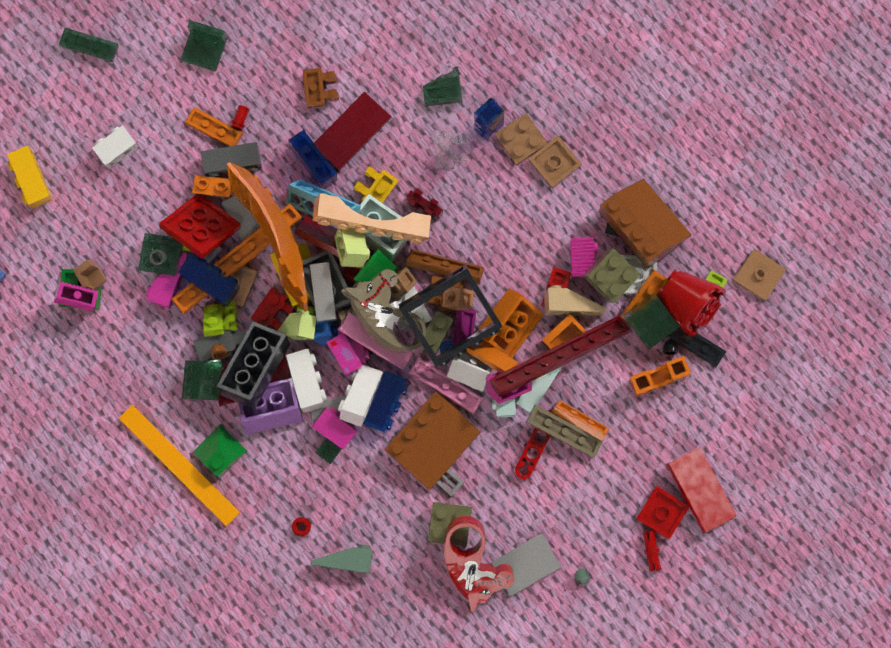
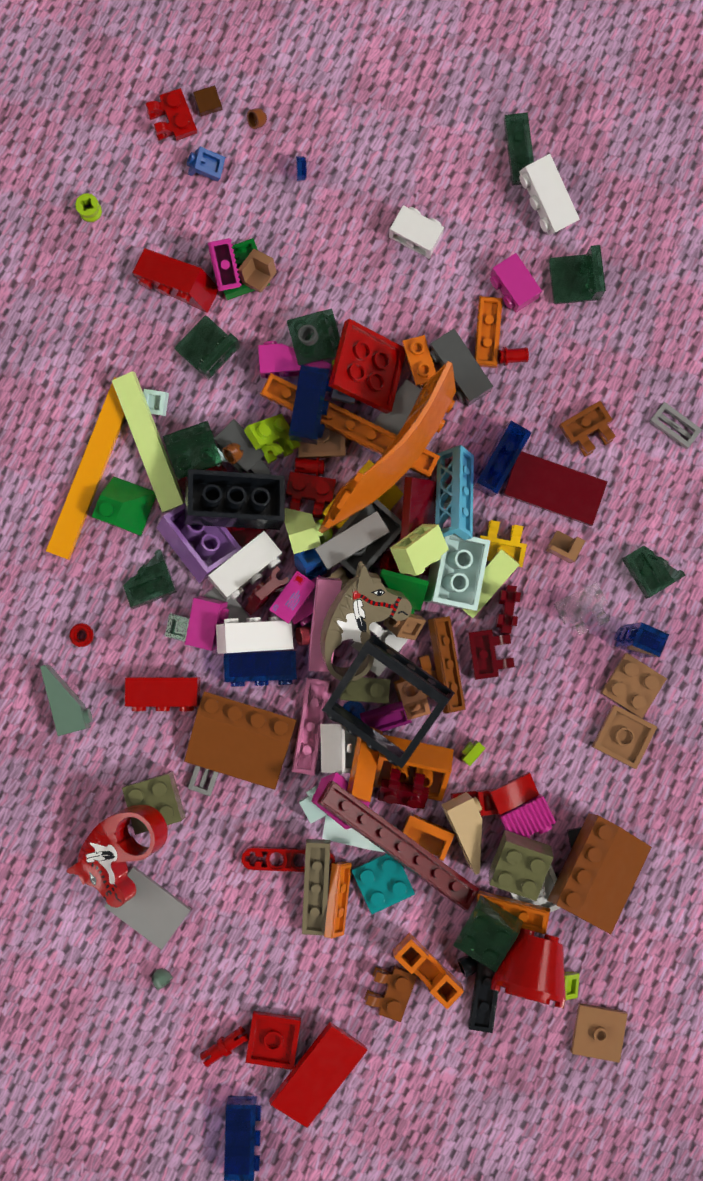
camera: 55 degrees right, 5 degrees up
(26, 210) = (301, 169): none -> clear blue tile
(29, 177) = (339, 153): yellow brick -> none
(67, 339) = (176, 279): none -> red wedge
(128, 339) = (207, 347): none -> clear green bracket
(134, 40) = (548, 195): none -> white brick
(152, 395) = (156, 401): none -> light aqua plate
(180, 412) = (148, 441): none -> yellowish green tile
(187, 92) = (515, 283): none -> dark pink brick
(252, 302) = (310, 466): none -> red pin
(285, 457) = (150, 583): none -> clear green wing
(331, 373) = (265, 591): none -> dark red plate
(332, 32) = (682, 419): none -> light grey tile
(334, 211) = (449, 511): light nougat arch -> none
(372, 483) = (162, 693): none -> red brick
(374, 359) = (303, 635): none -> coral hinge
(394, 199) = (494, 576): none -> yellowish green tile
(398, 143) = (565, 546): none -> medium nougat panel
(450, 236) = (484, 656): none -> dark red plate
(516, 276) = (472, 751): none -> lime plate
(524, 339) = (401, 793): none -> dark red plate
(560, 259) = (513, 793): none -> red slope
(583, 382) = (382, 882): none -> teal plate
(668, 408) = (396, 995): none -> dark orange plate
(723, 565) = (242, 1138): none -> clear blue brick

